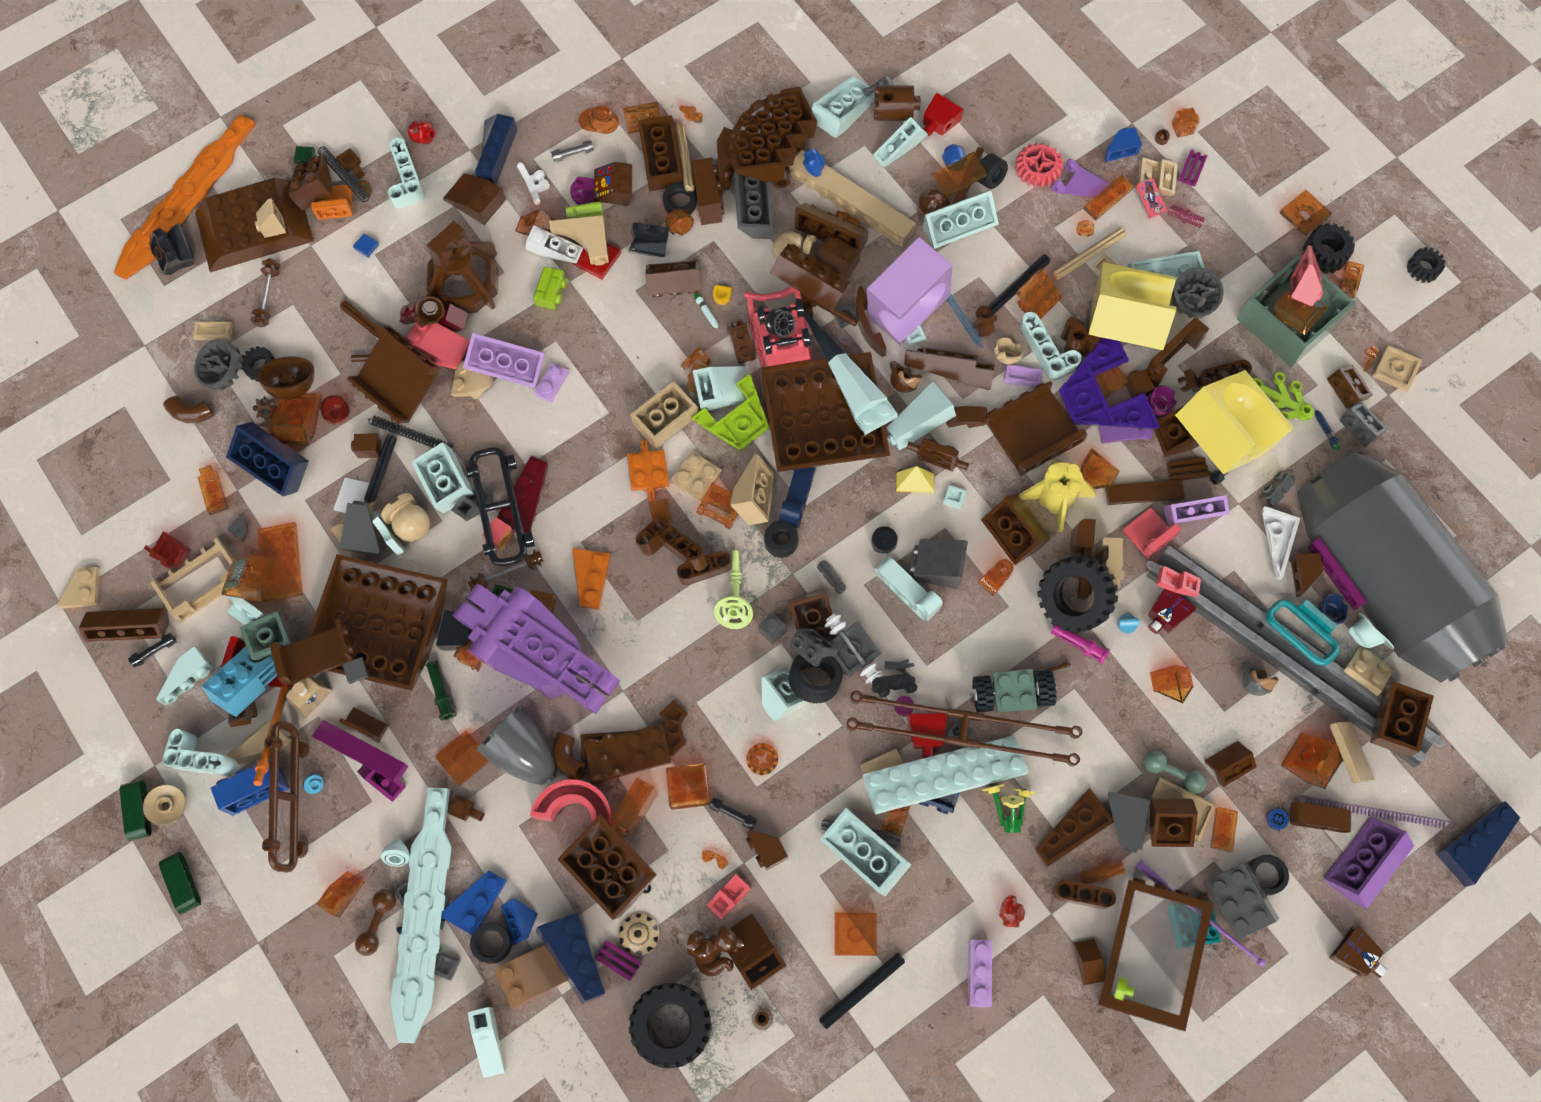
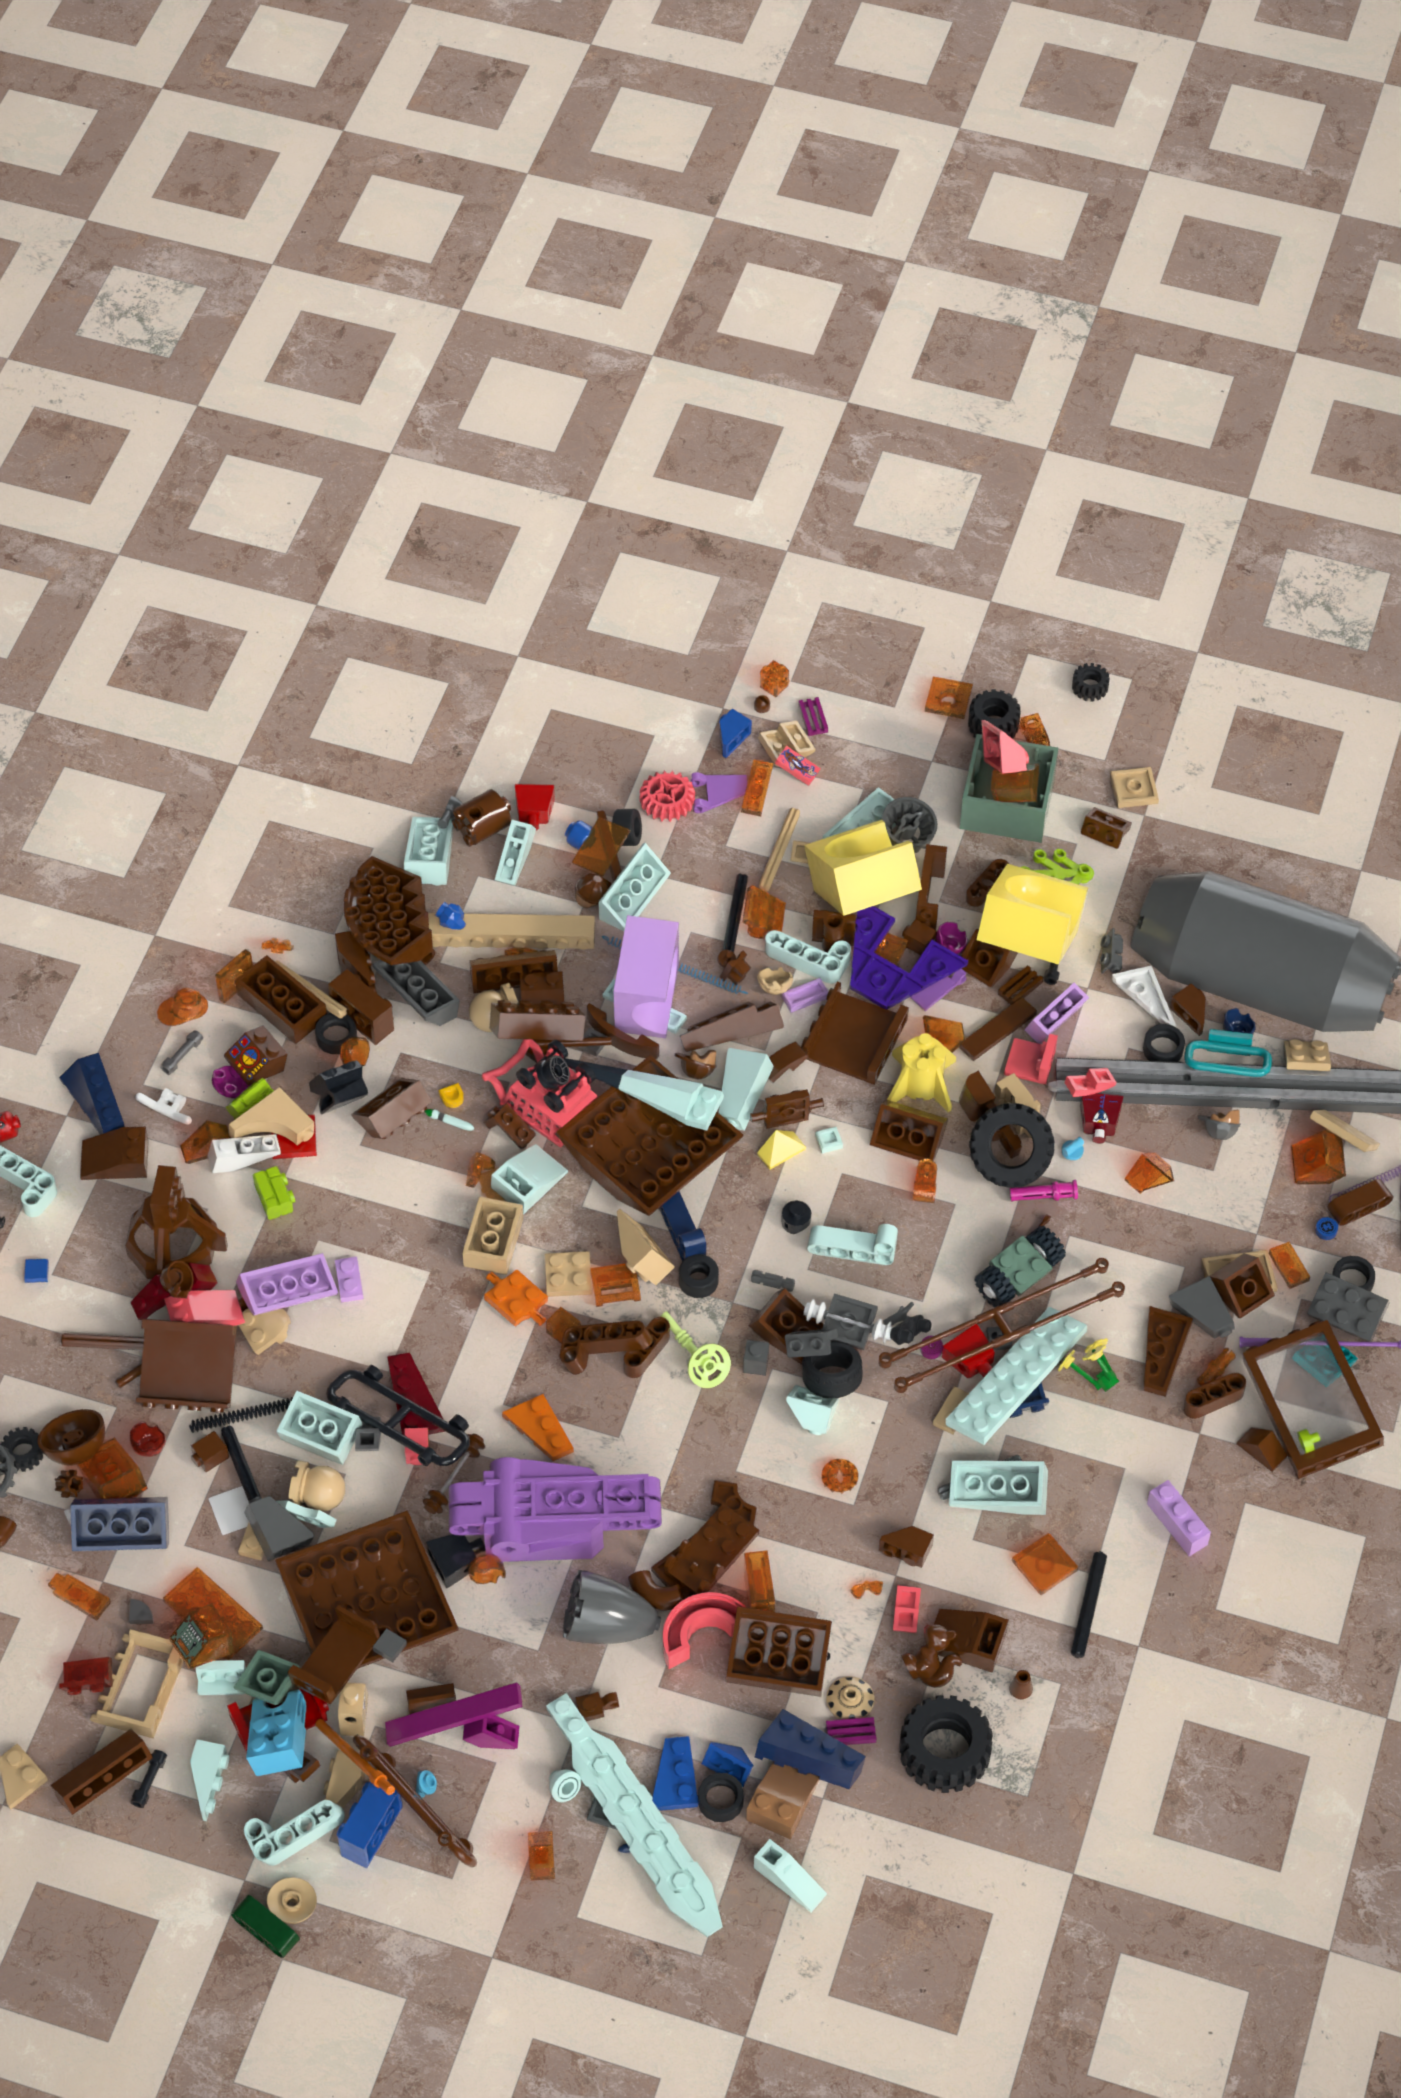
camera: 40 degrees left, 15 degrees down
(179, 883) = (369, 1956): dark green beam -> none
(368, 942) = (603, 1876): reddish brown piece -> none
(442, 699) = (489, 1624): dark green pin -> none
(446, 966) = (696, 1847): flat silver tile -> none
(461, 758) = (553, 1664): clear orange slope -> none
(676, 780) = (792, 1528): clear orange brick -> none
(740, 425) = (575, 1199): lime wing -> none
(748, 821) = (871, 1535): black bar -> none
(895, 820) = (1003, 1442): clear orange brick -> none
(939, 562) = (865, 1200): flat silver slope -> none
(1011, 912) = (1165, 1450): clear red rock -> none
(1085, 228) = (757, 828): clear orange tile -> none
(1186, 216) = (842, 763): clear pink pin -> none
(1191, 381) = (962, 906): reddish brown tile -> none
(1193, 781) = (1233, 1241): sand green piece -> none
(1231, 763) = (1253, 1207): reddish brown panel -> none
(1268, 574) = (1164, 1031): none -> black tyre
(1334, 442) = (1128, 883): dark blue piece -> none
(1338, 575) = (1221, 994): magenta tile -> none
(1363, 424) = (1142, 853): dark grey bracket -> none
(1367, 635) = (1284, 1026): light aqua piece -> none
(1372, 353) = (1103, 786): clear orange hand -> none
(1402, 719) = (1364, 1074): reddish brown brick -> none

